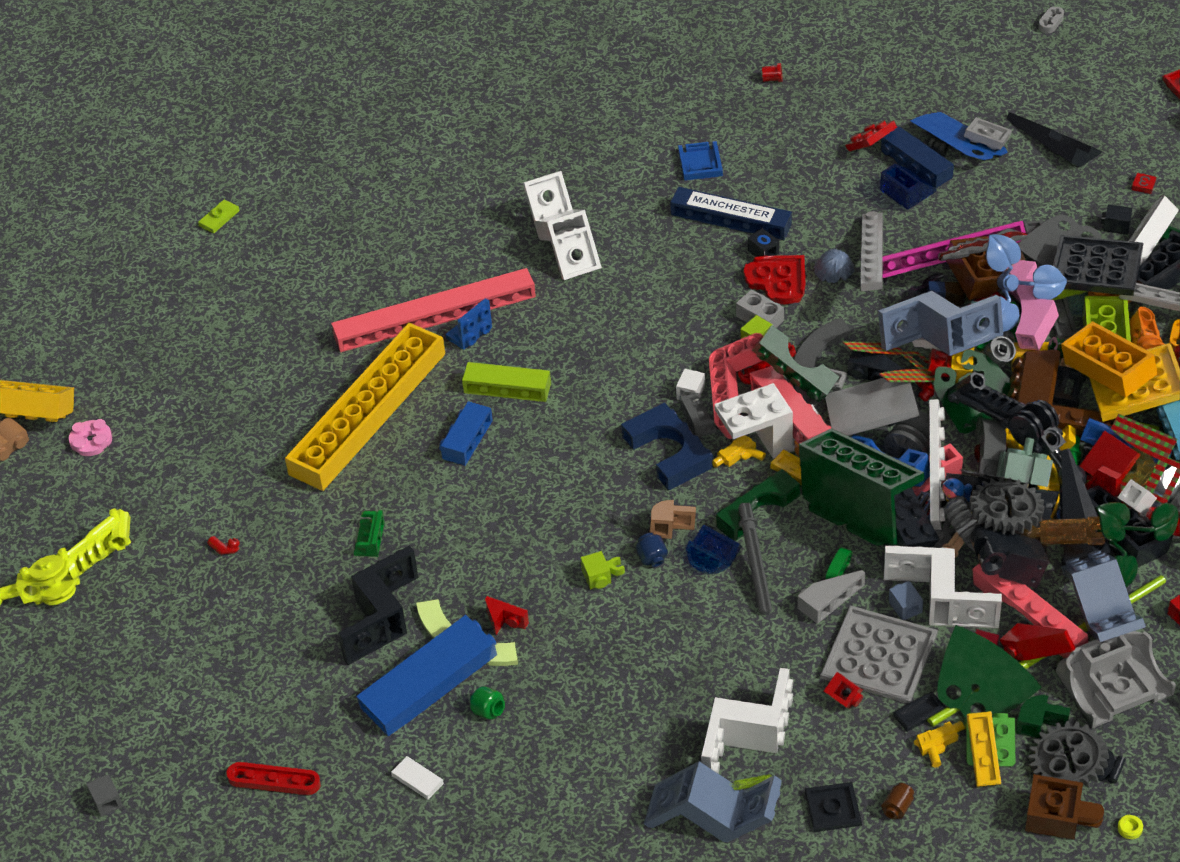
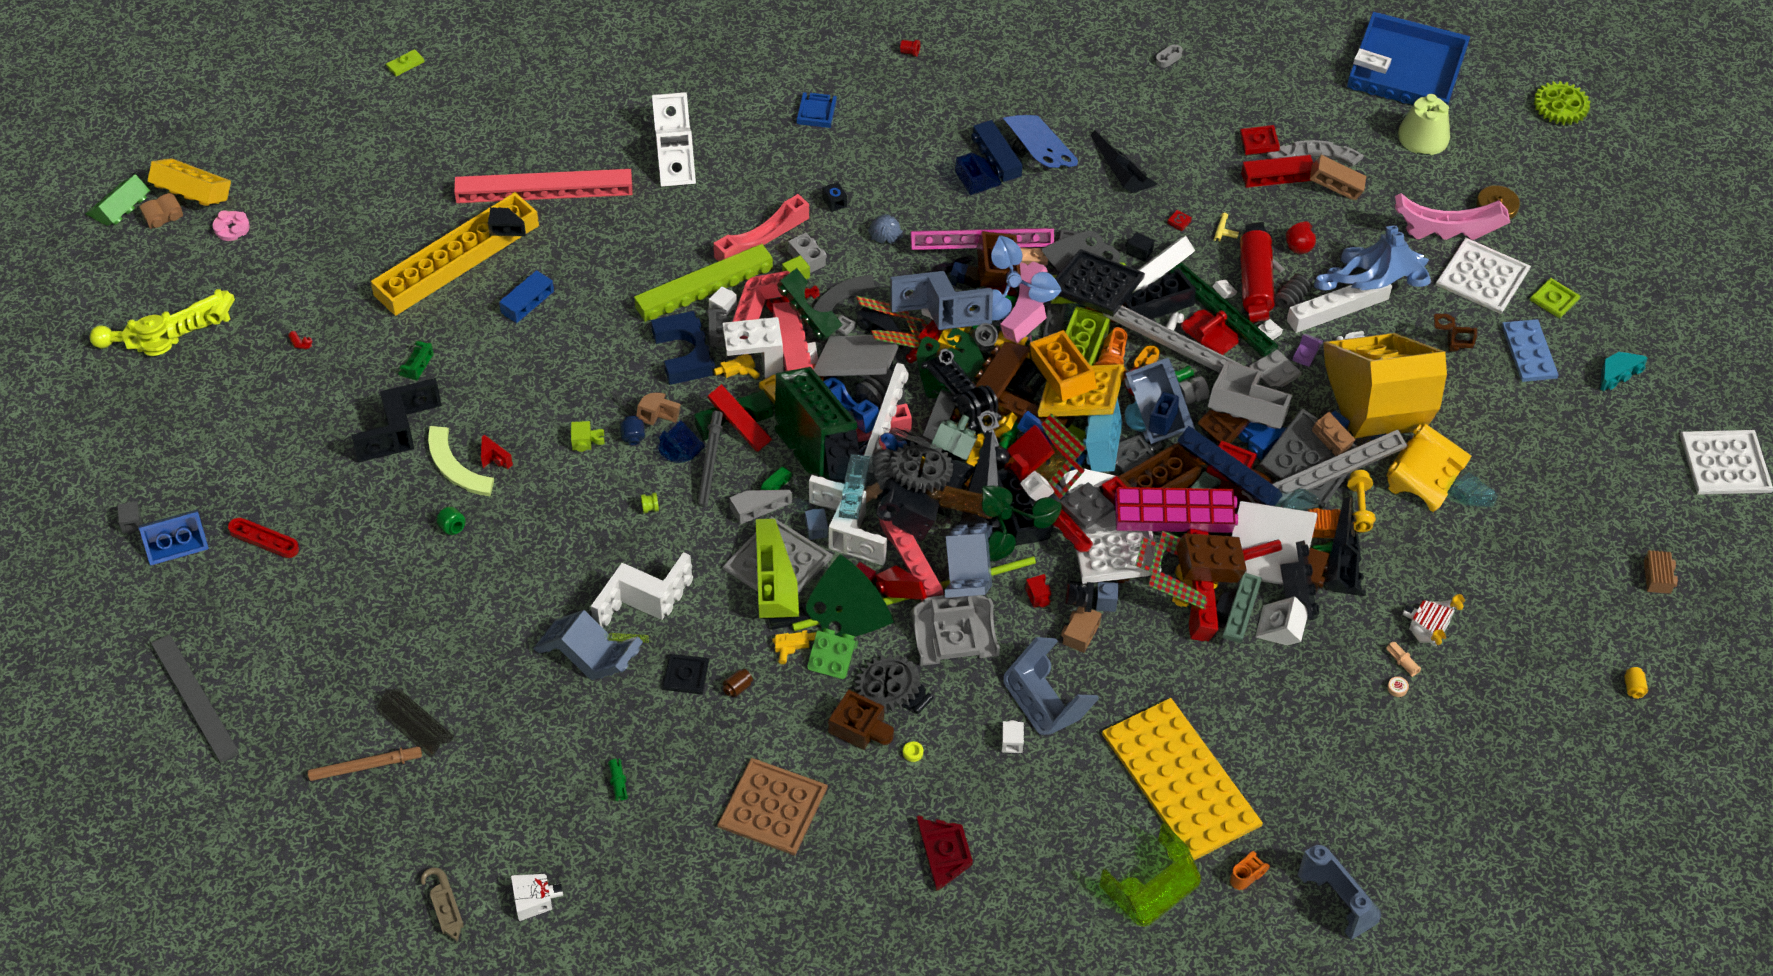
camera: 10 degrees right, 5 degrees up
(166, 804) = (173, 537): none -> blue slope
(416, 356) = (505, 223): none -> black slope
(417, 777) = (374, 566): white tile -> none
(427, 675) = (413, 486): blue brick -> none
(471, 325) = (567, 206): blue bracket -> none
(506, 381) = (576, 261): lime brick -> none
(659, 371) = (703, 282): none -> lime brick
(679, 323) = (788, 216): none -> coral arch
(706, 625) = (649, 503): none -> lime wheel
(730, 212) = (820, 162): dark blue brick -> none
(769, 506) = (739, 418): none -> red tile
(779, 276) = (836, 227): red plate -> none
(836, 690) = (728, 582): red brick -> none
(871, 135) = (969, 120): red plate -> none
(872, 251) = (916, 224): light grey plate -> none
(886, 668) = (775, 573): none -> lime wedge
(941, 546) = (854, 486): none -> clear light blue slope
(978, 245) = (987, 242): dark grey sword -> none
(983, 749) = (821, 659): yellow tile -> none
(987, 133) = (1065, 144): light grey plate -> none
(1036, 712) = (880, 641): dark green brick -> none

